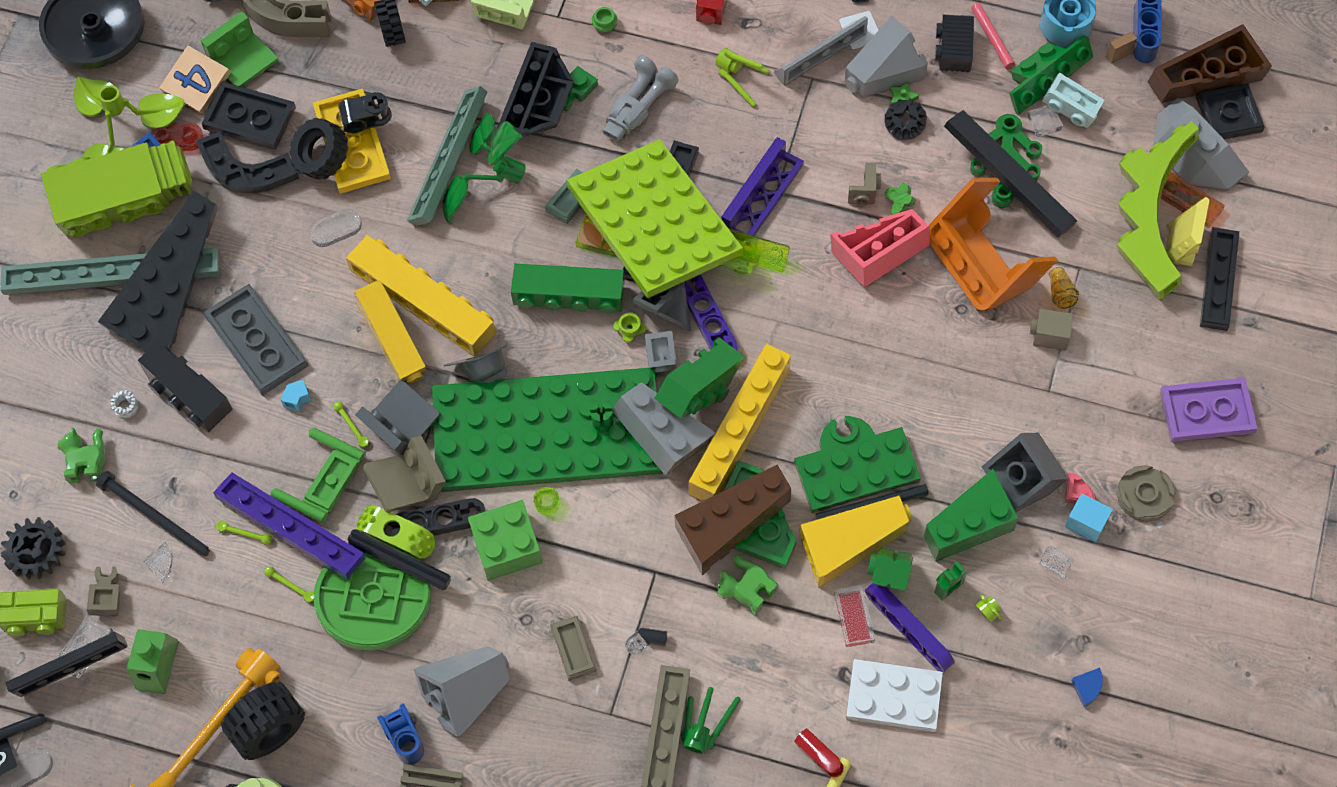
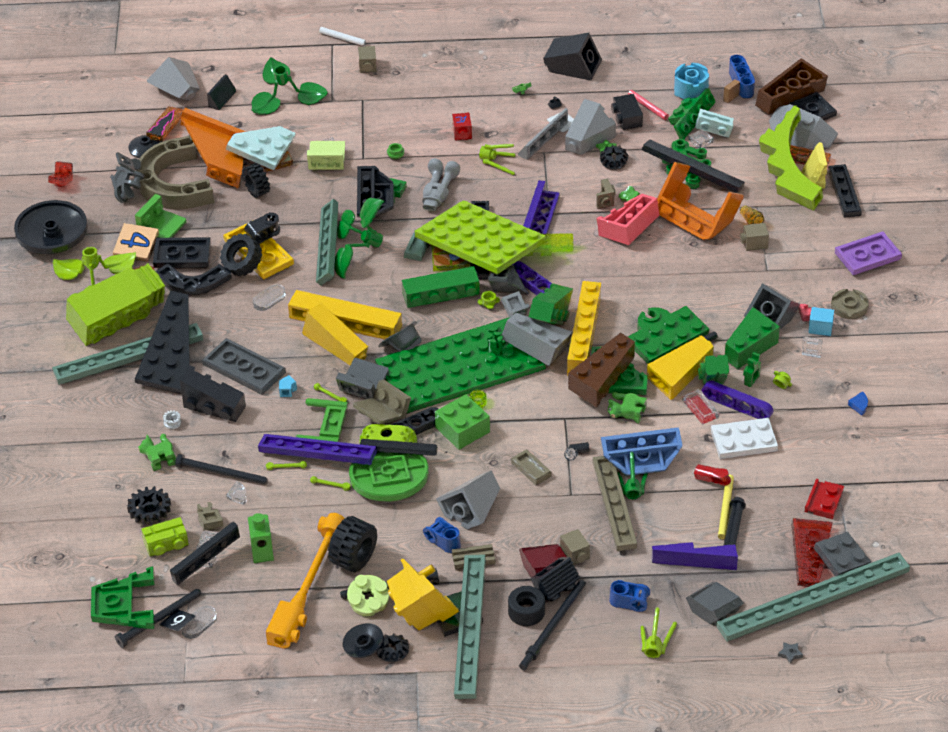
camera: 20 degrees left, 20 degrees down
(741, 683) = (651, 450): none -> medium blue wedge

